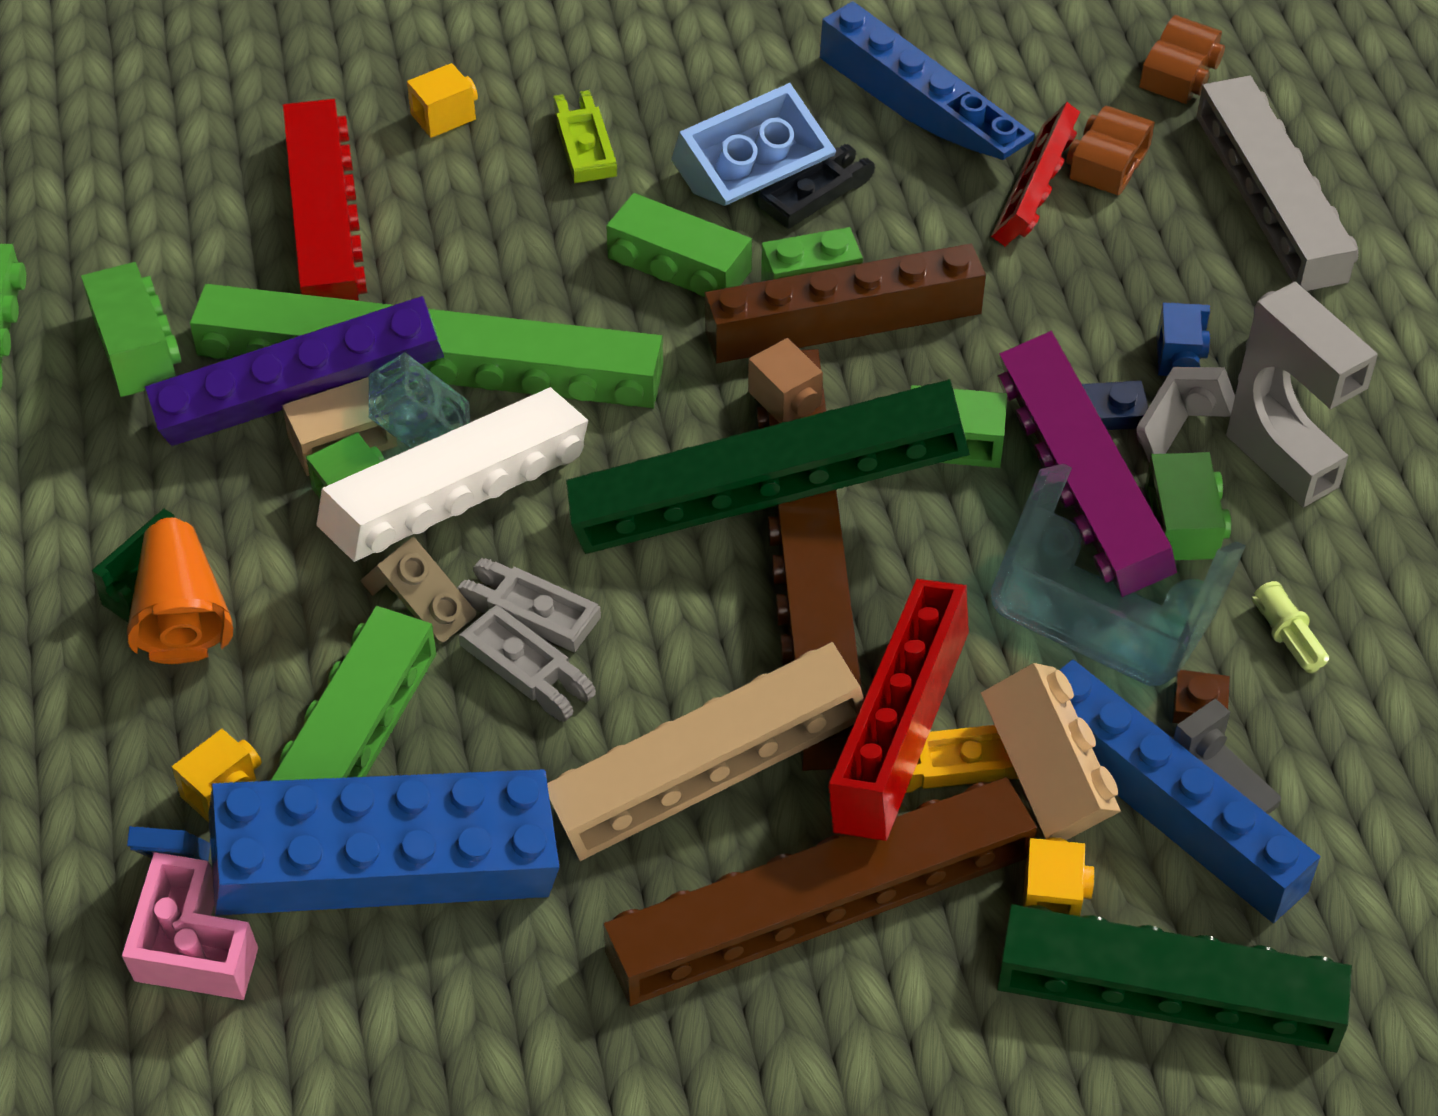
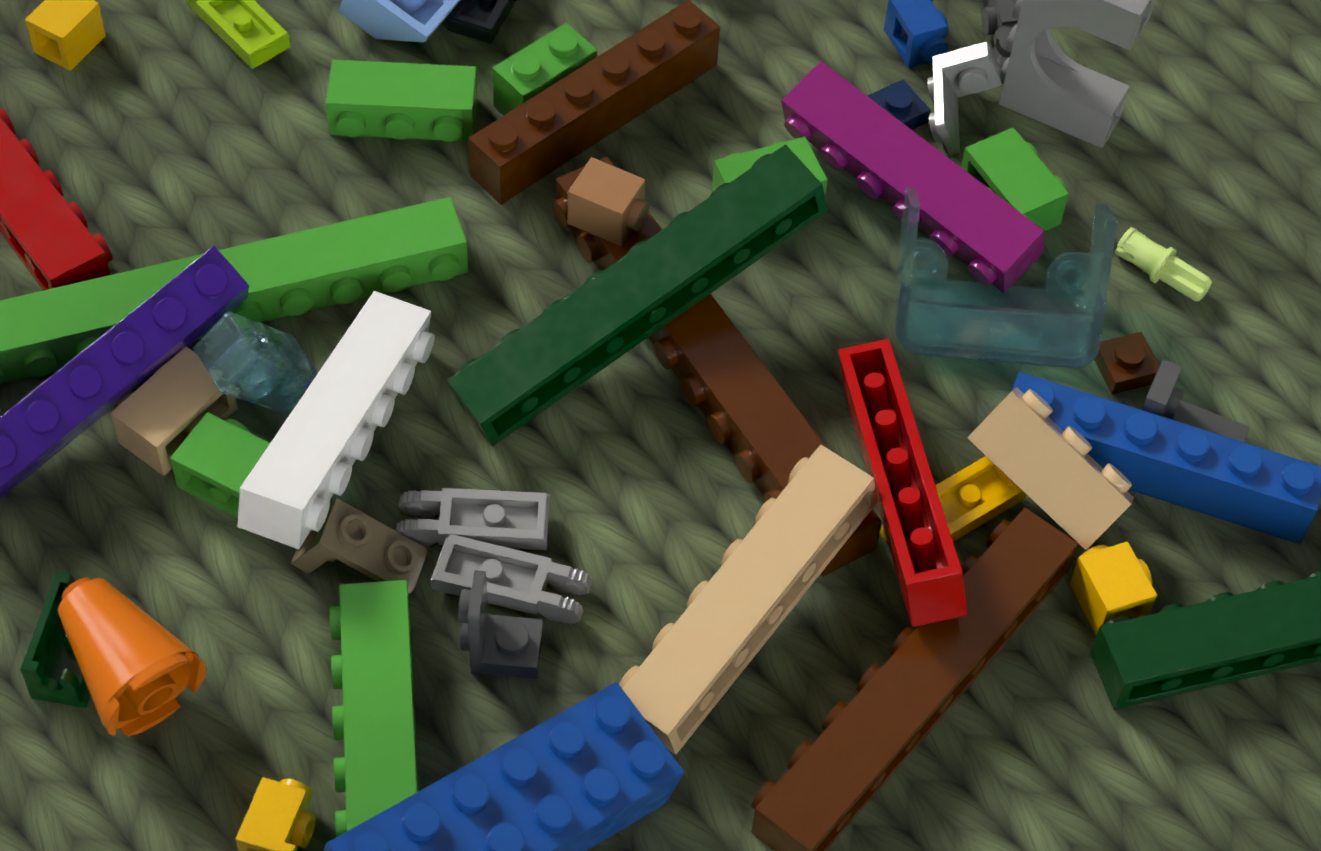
camera: 30 degrees left, 5 degrees up
(477, 703) = (495, 641): none -> dark grey bracket

